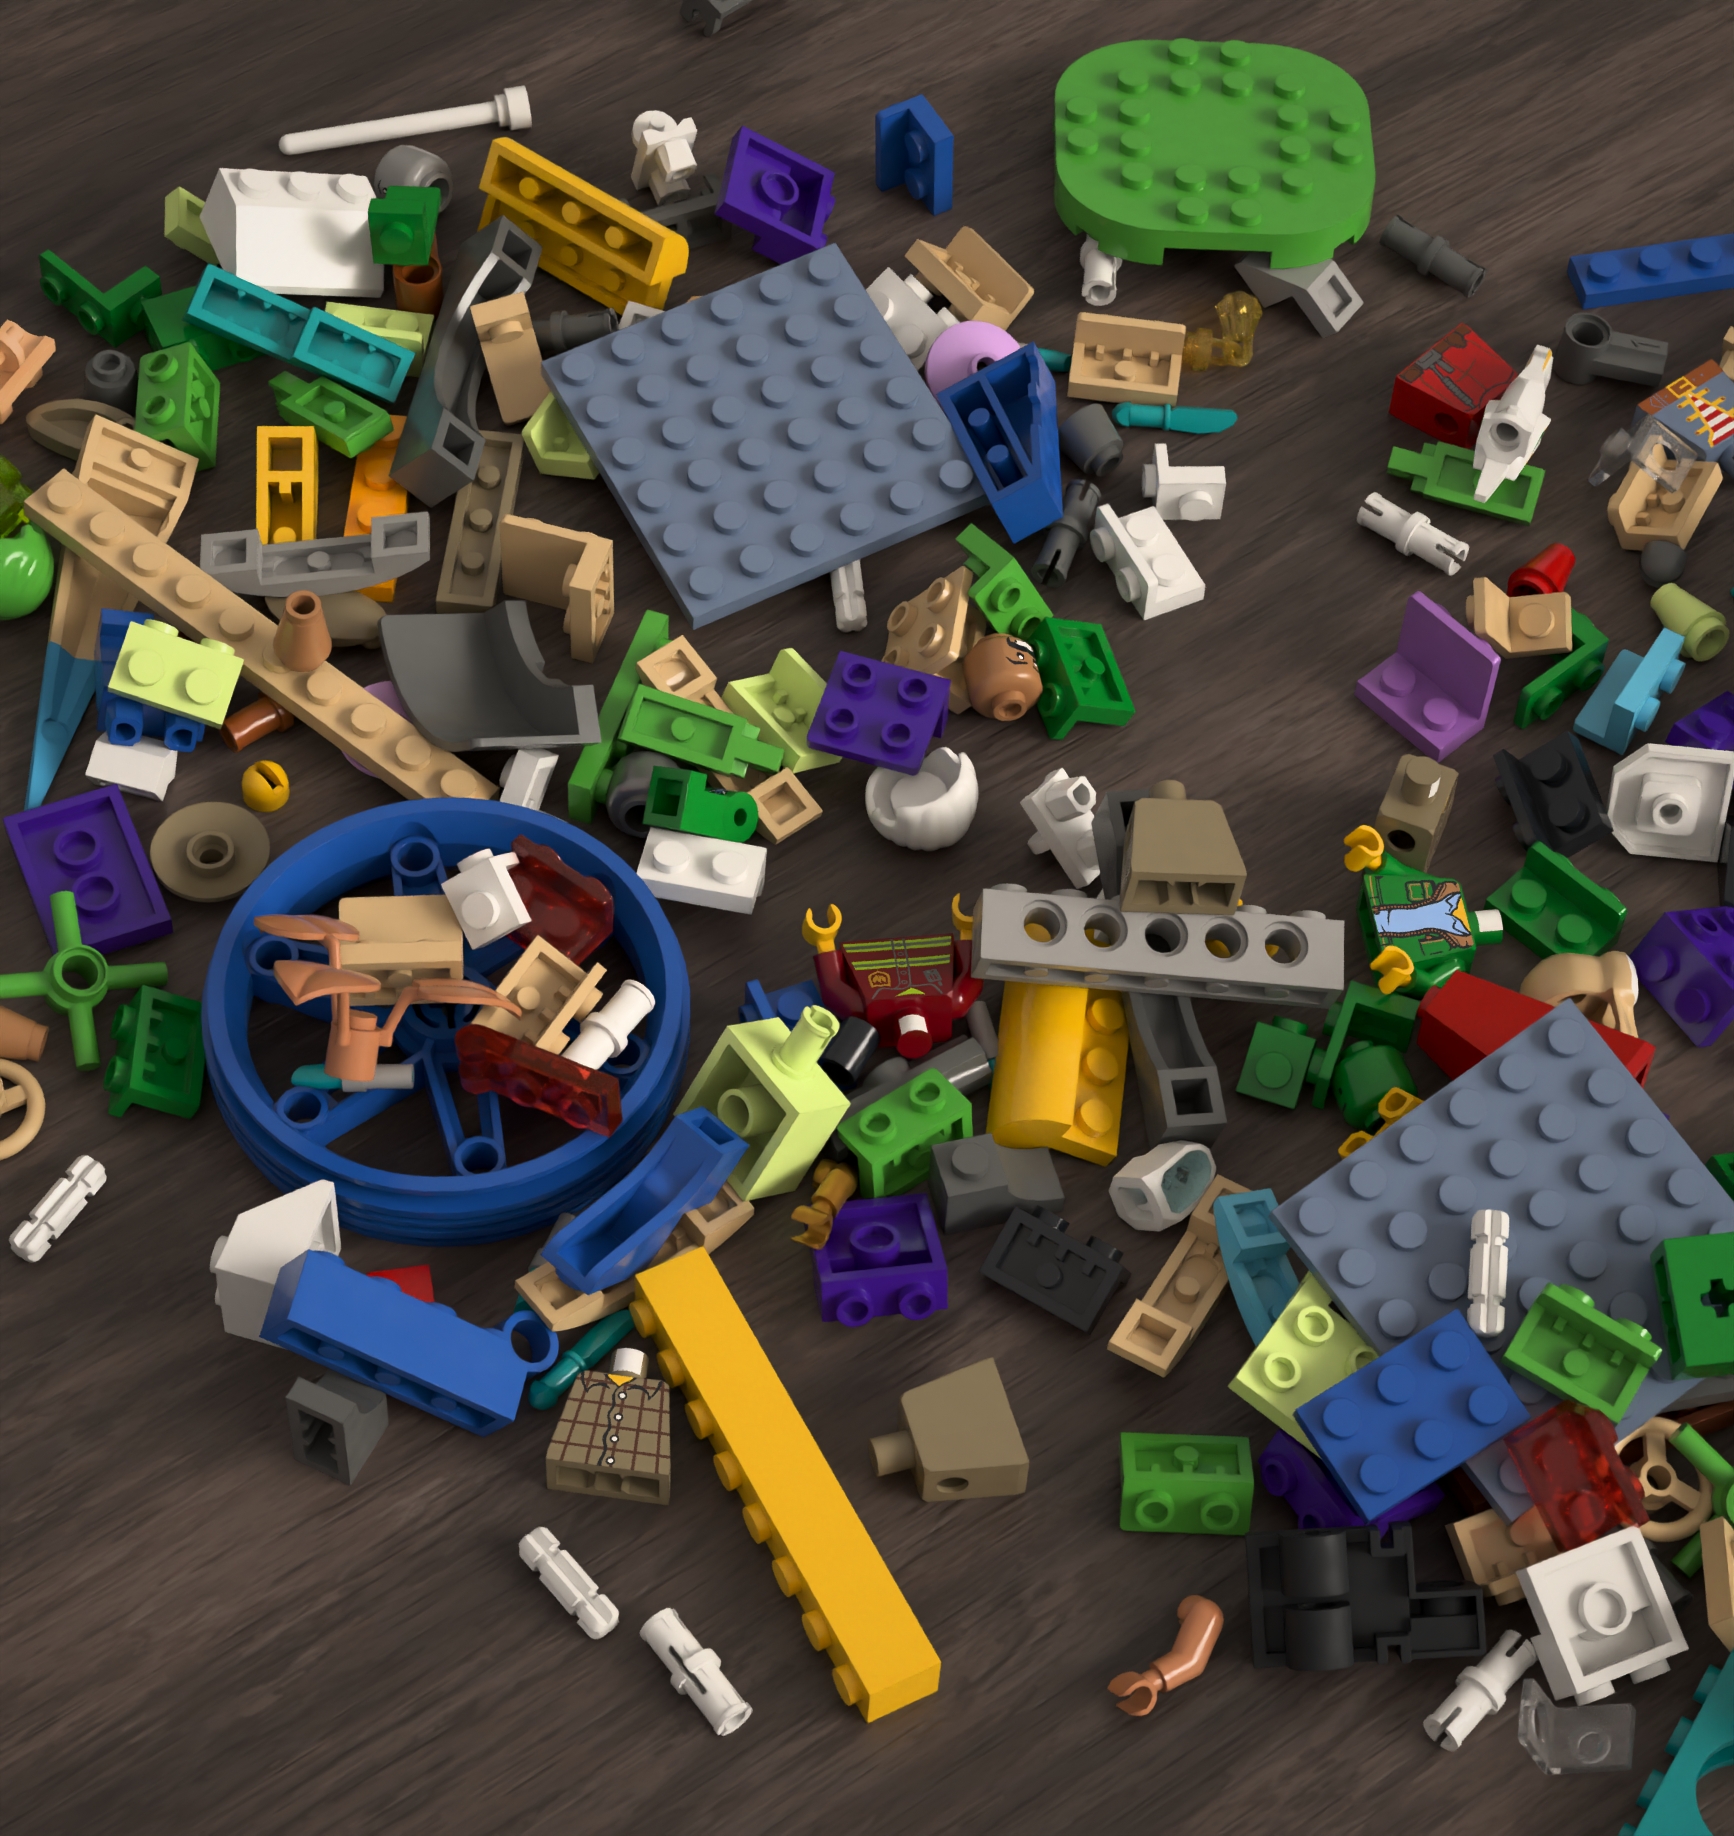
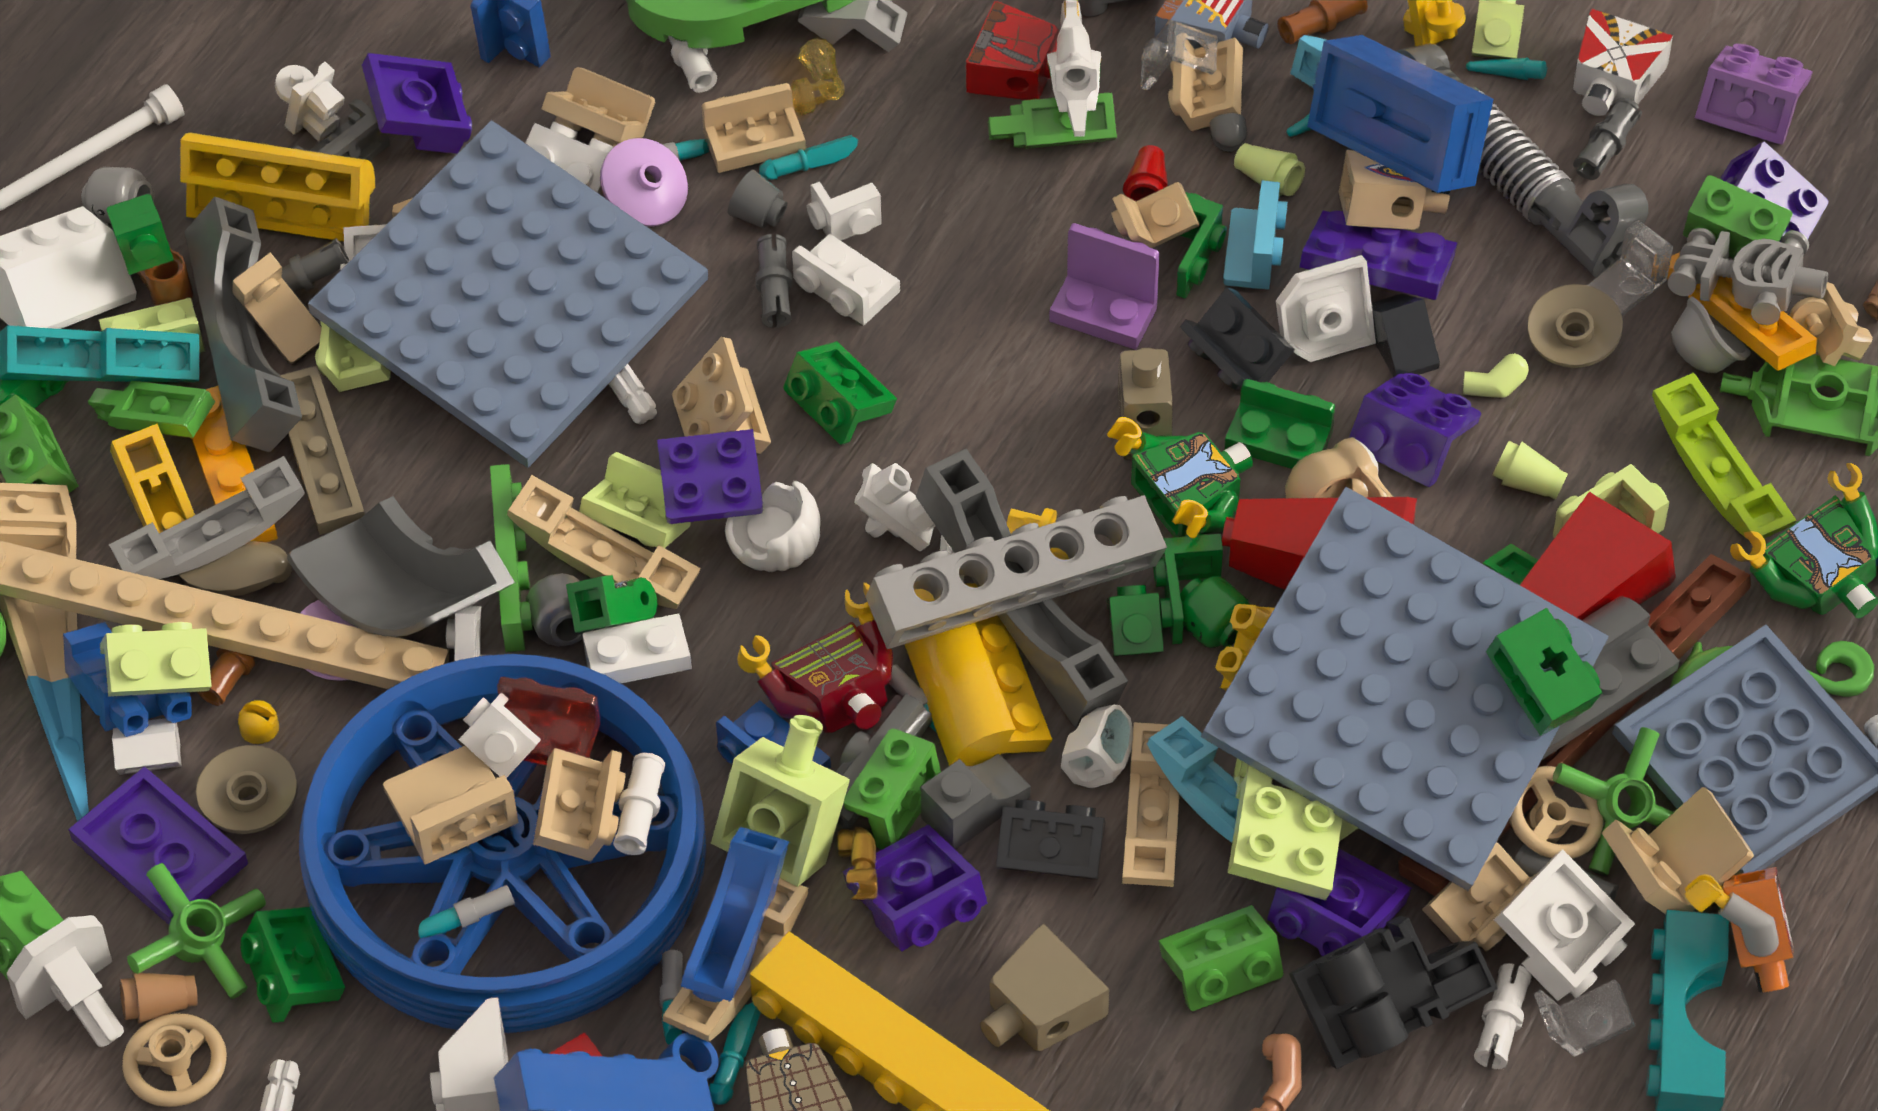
camera: 20 degrees left, 0 degrees up
(302, 634) = (242, 590): medium nougat cone -> none
(354, 1033) = (458, 878): nougat plant -> none
(538, 1079) = (610, 856): clear red plate -> none
(564, 572) = (408, 462): tan bracket -> none
(696, 734) = (580, 547): bright green hinge -> none
(849, 1051) = (827, 744): black hinge -> none
(1002, 587) = (758, 342): bright green bracket -> none
(1002, 677) = (786, 411): medium nougat head -> none
(1011, 438) = (699, 222): blue wedge -> none
(1179, 856) = (1006, 494): dark tan torso -> none
(1411, 1416) = (1371, 838): blue plate -> none
(1412, 533) = (1034, 179): white pin -> none
(1488, 1272) = (1380, 712): white axle -> none
(1576, 1474) = (1505, 831): clear red bracket -> none
(1581, 1351) = (1472, 741): bright green bracket -> none

